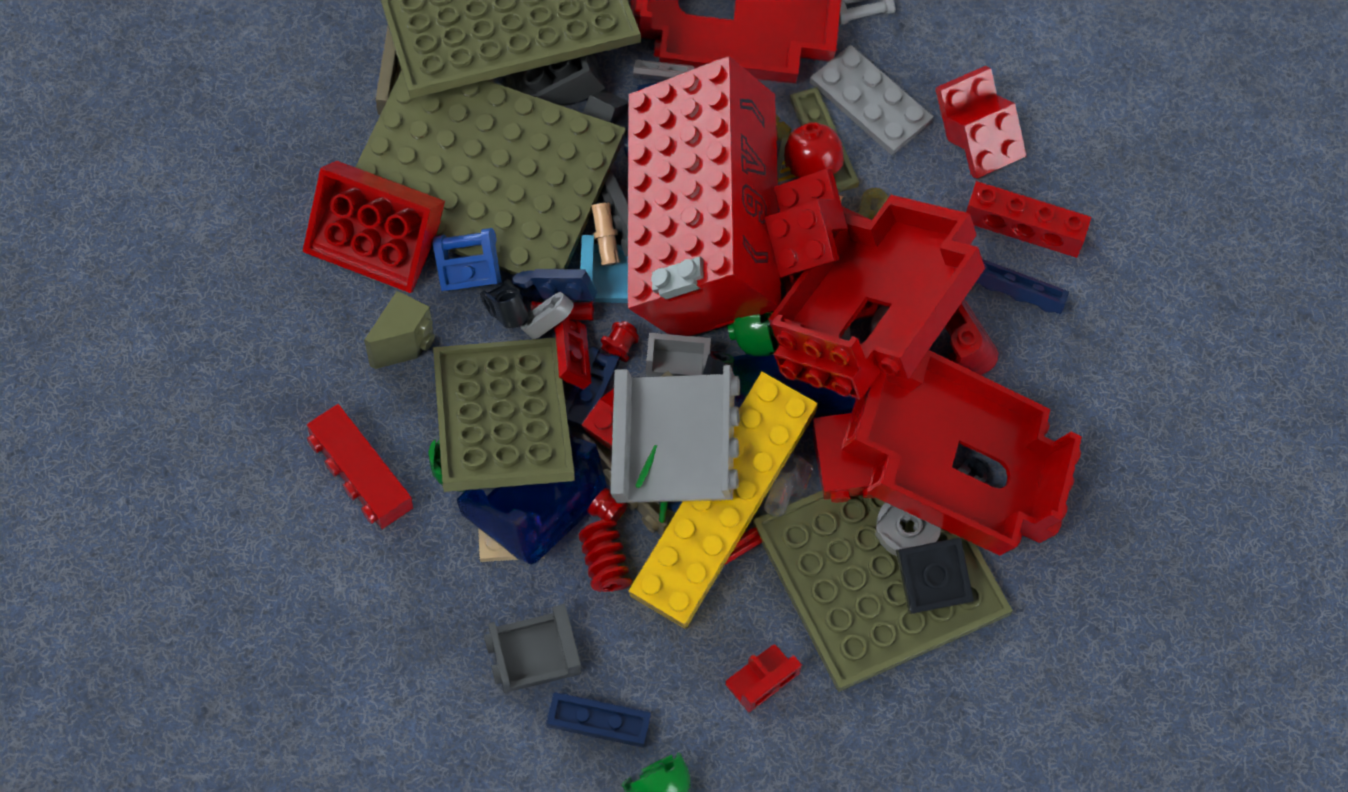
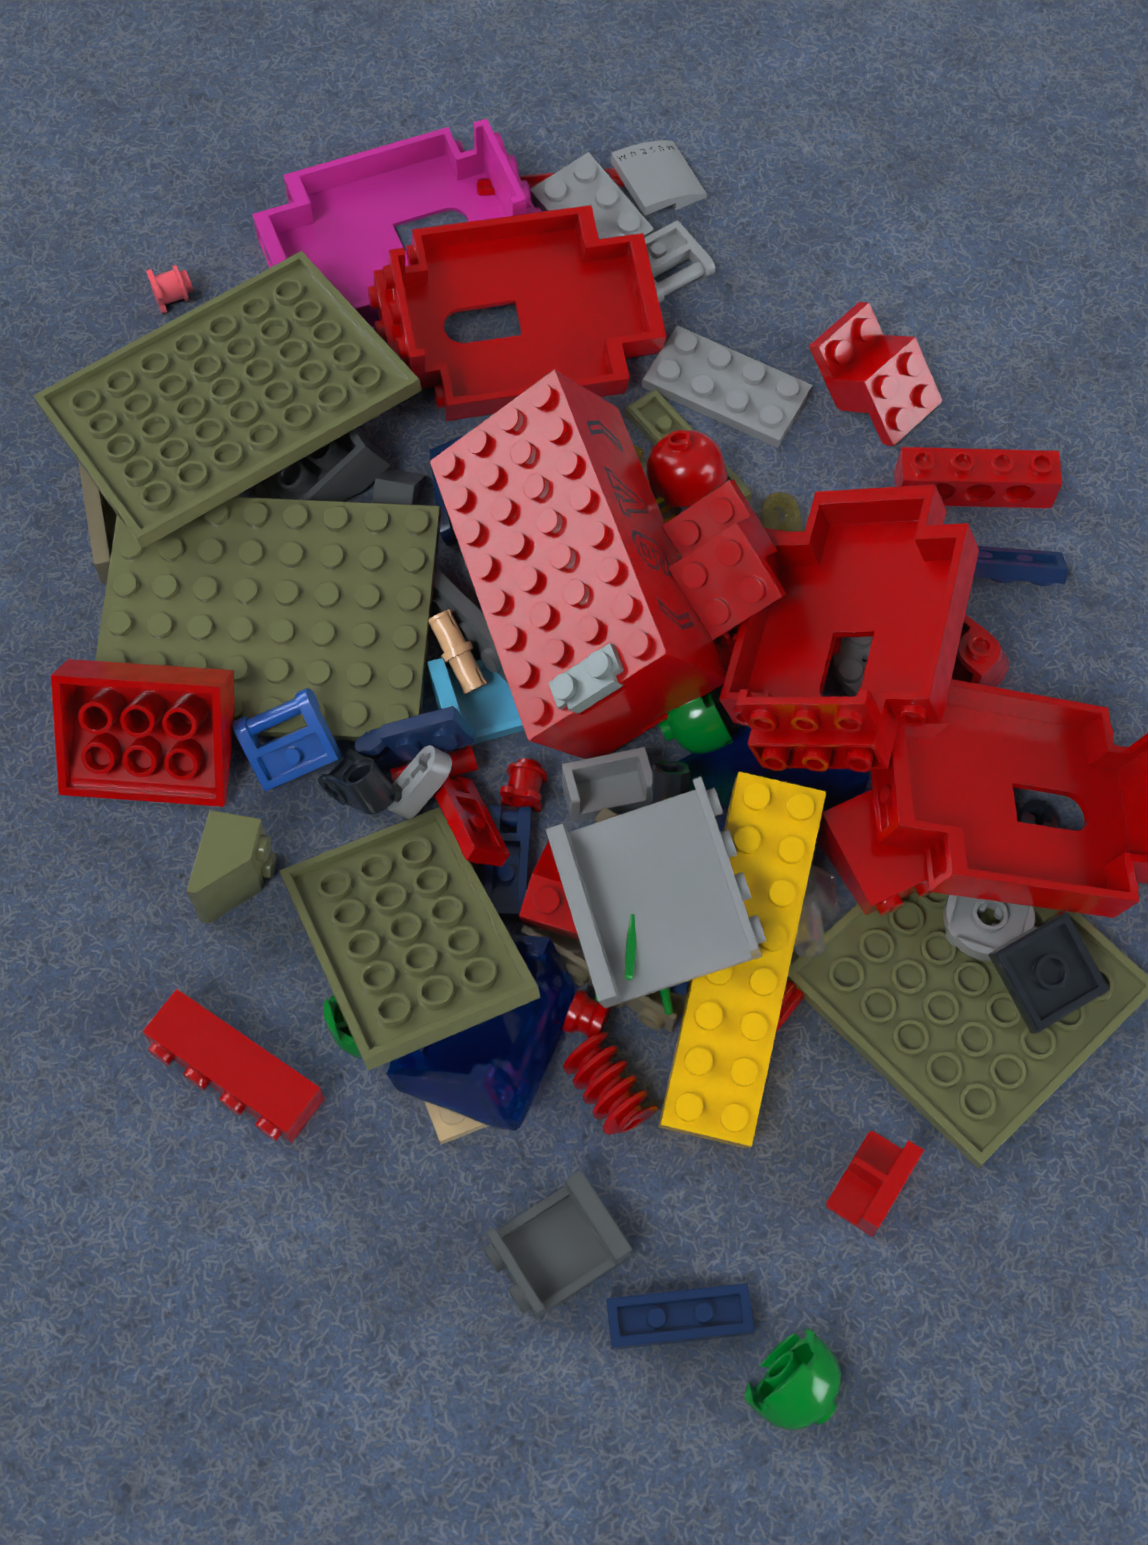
camera: 15 degrees left, 0 degrees up
(657, 70) = (453, 423): light grey slope -> none

